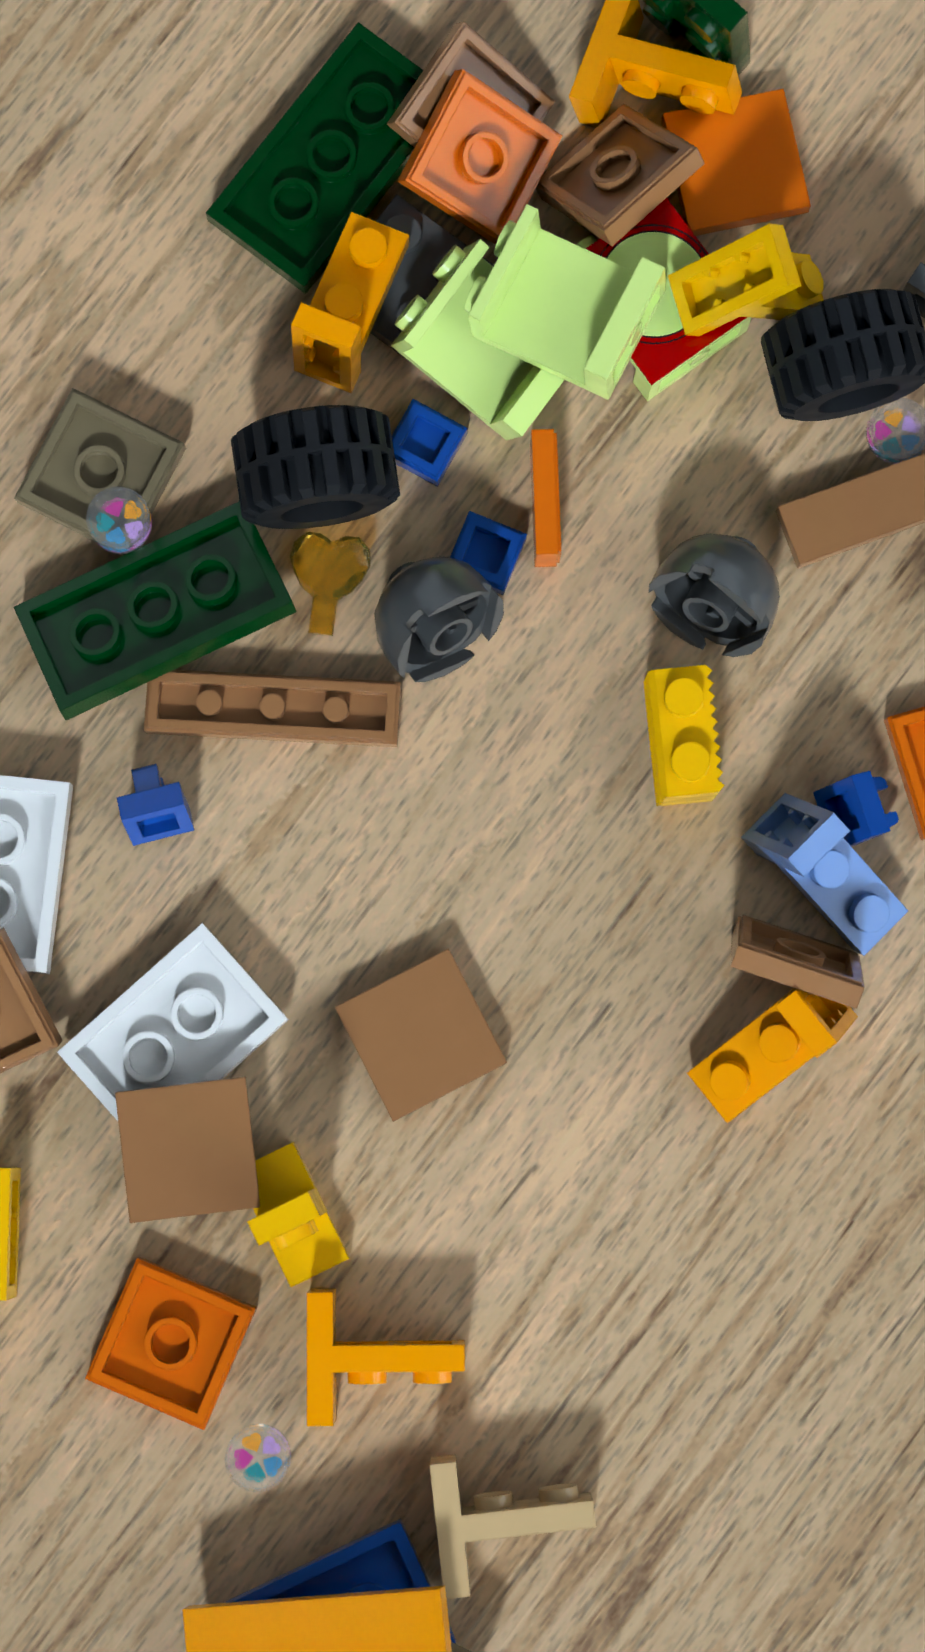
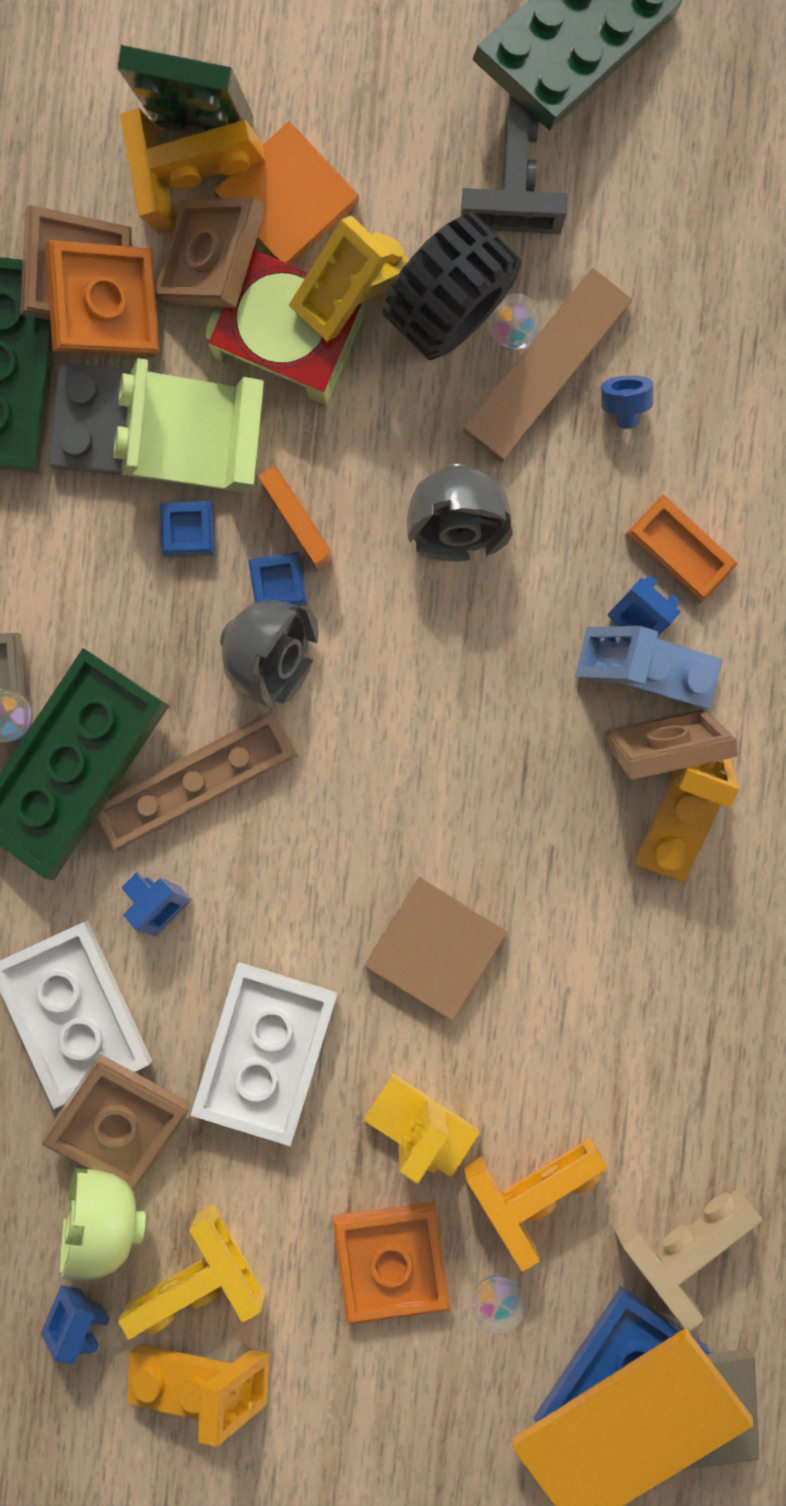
camera: 30 degrees left, 5 degrees up
(187, 1149) = (323, 1130): medium nougat tile -> none
(315, 467) = (118, 595): black tyre -> none
(328, 574) = (176, 663): clear yellow rock -> none
(347, 302) = (70, 461): light orange bracket -> none
(563, 305) = (226, 371): yellowish green panel -> none
(682, 735) = (493, 630): yellow brick -> none

